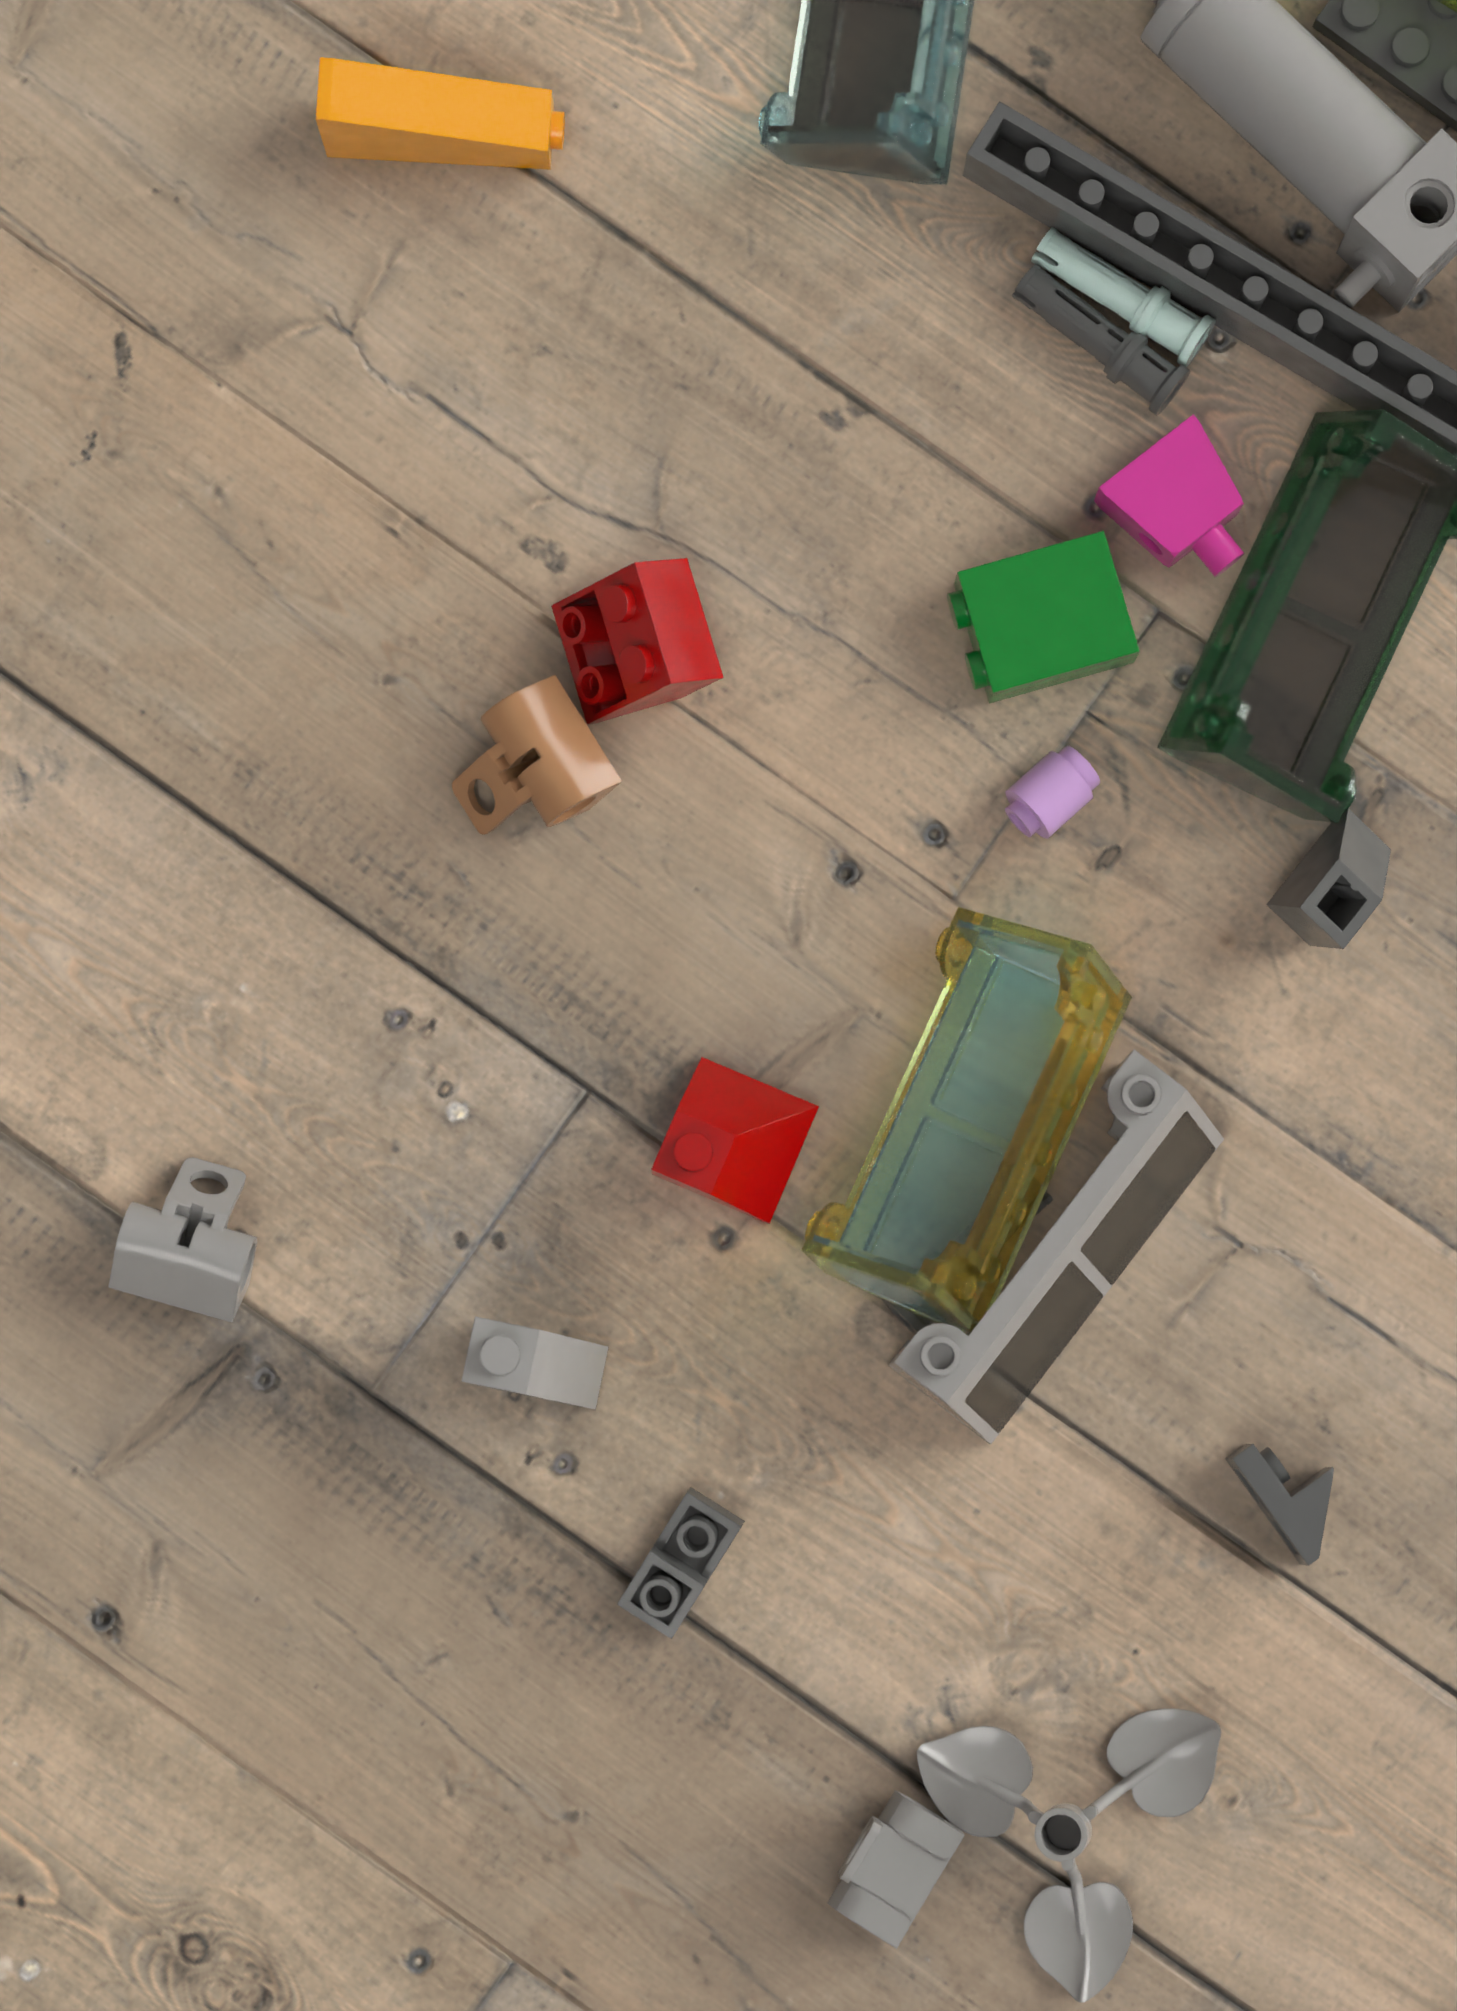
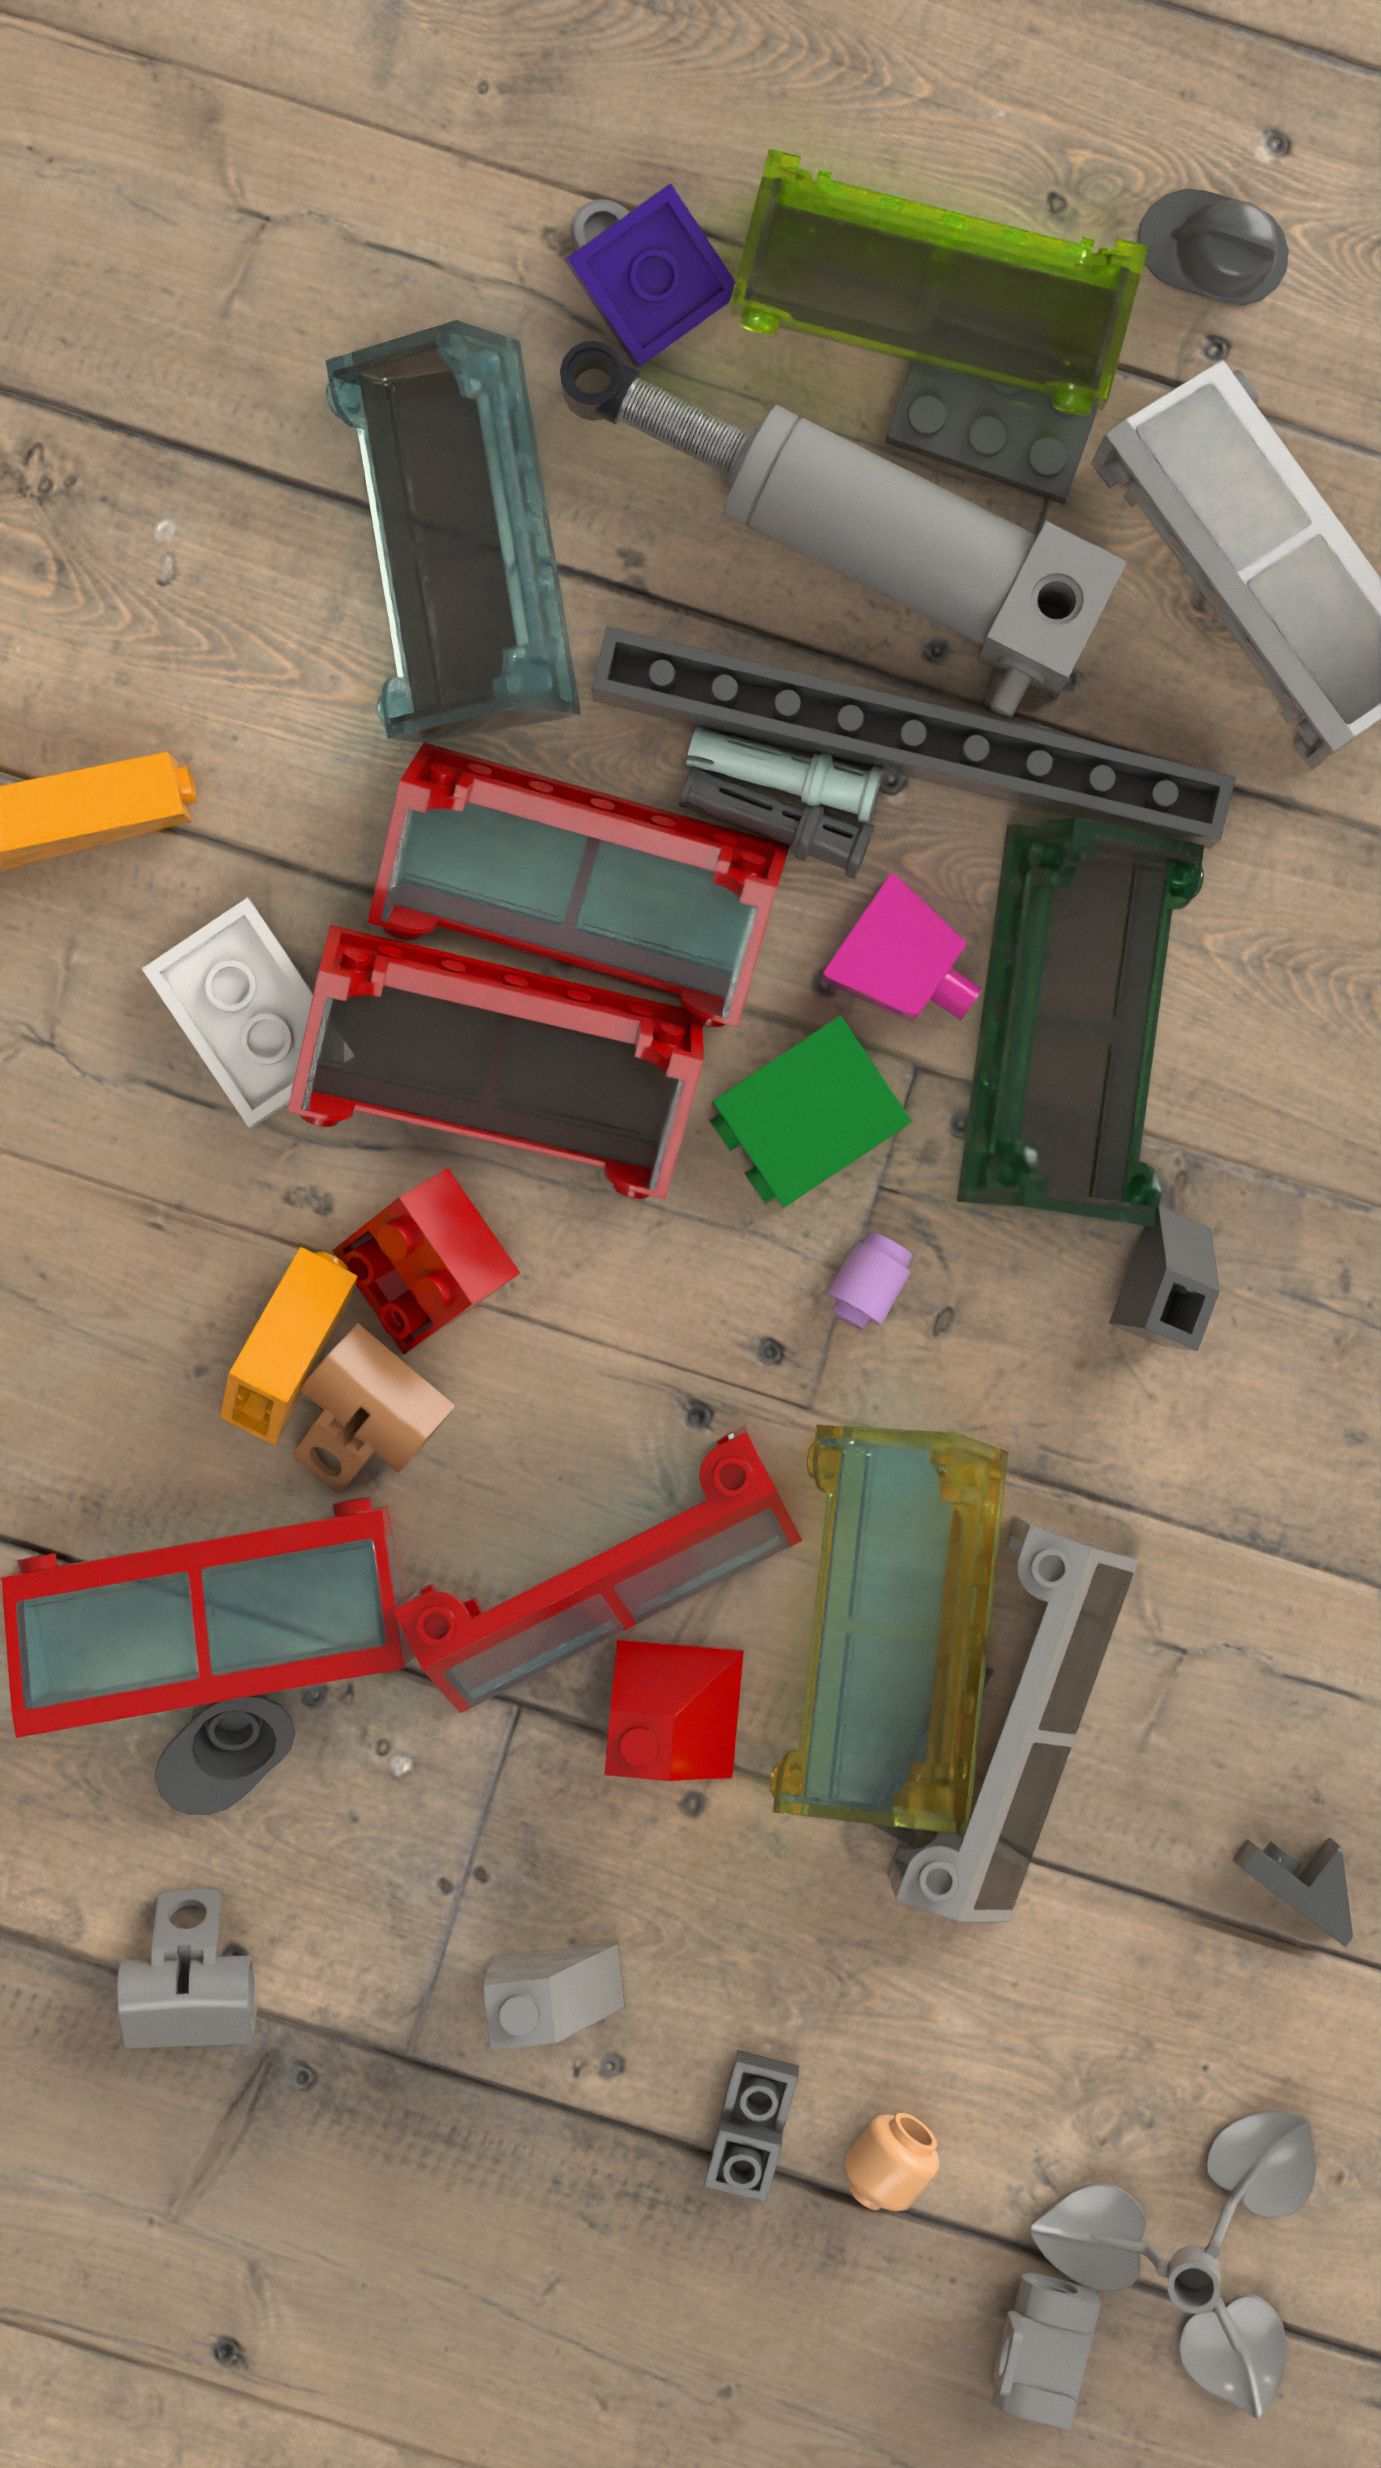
camera: 20 degrees left, 5 degrees up
(296, 1035) = (223, 1753): none -> dark grey piece
(319, 903) = (203, 1621): none -> windscreen
(477, 674) = (287, 1344): none -> light orange slope
(547, 358) = (238, 1007): none -> white plate
(711, 994) = (487, 1652): none -> windscreen
(766, 471) = (499, 1057): none -> windscreen
(805, 1638) = (891, 2162): none -> light nougat head
(895, 333) = (578, 879): none -> windscreen

